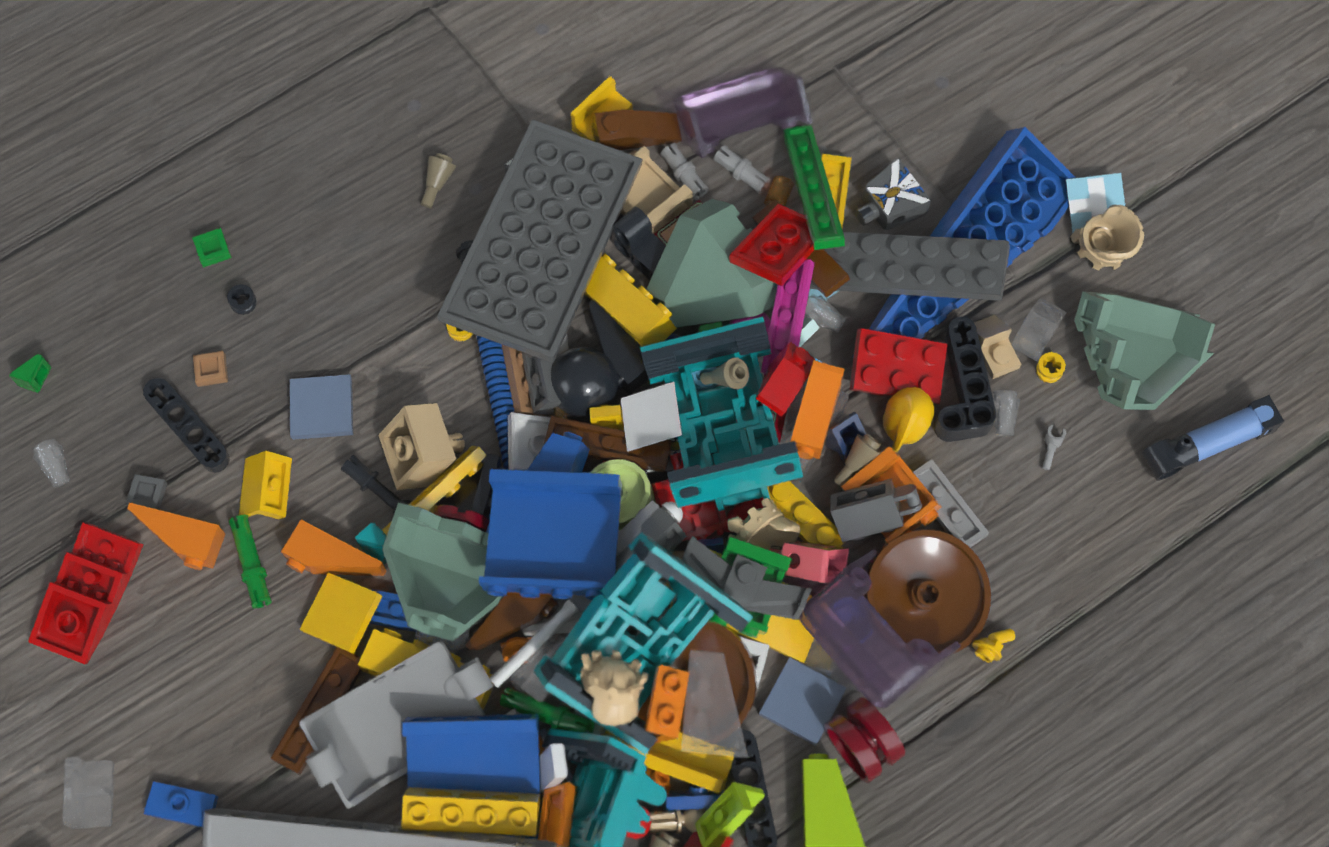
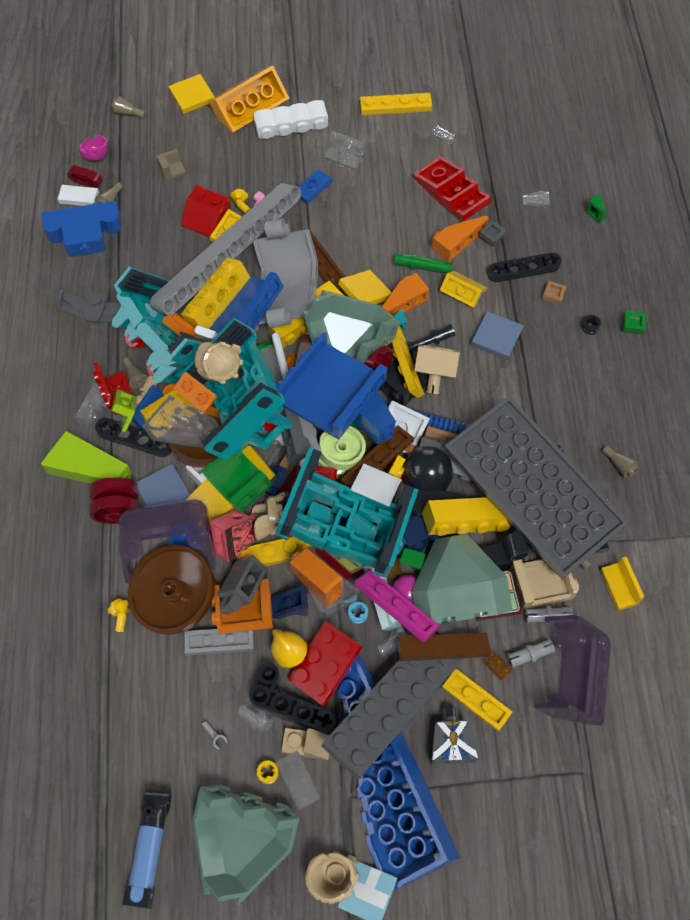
camera: 120 degrees right, 5 degrees down
(635, 129) = (596, 592): reddish brown slope -> none
(731, 374) = (369, 533): dark tan cone -> none
(745, 583) = (237, 474): dark grey plate -> none
(775, 246) = (449, 625): red tile -> none
(785, 378) = (347, 564): red slope -> none
(813, 188) = (483, 679): green tile -> none
(861, 453) = (279, 600): dark tan cone -> none

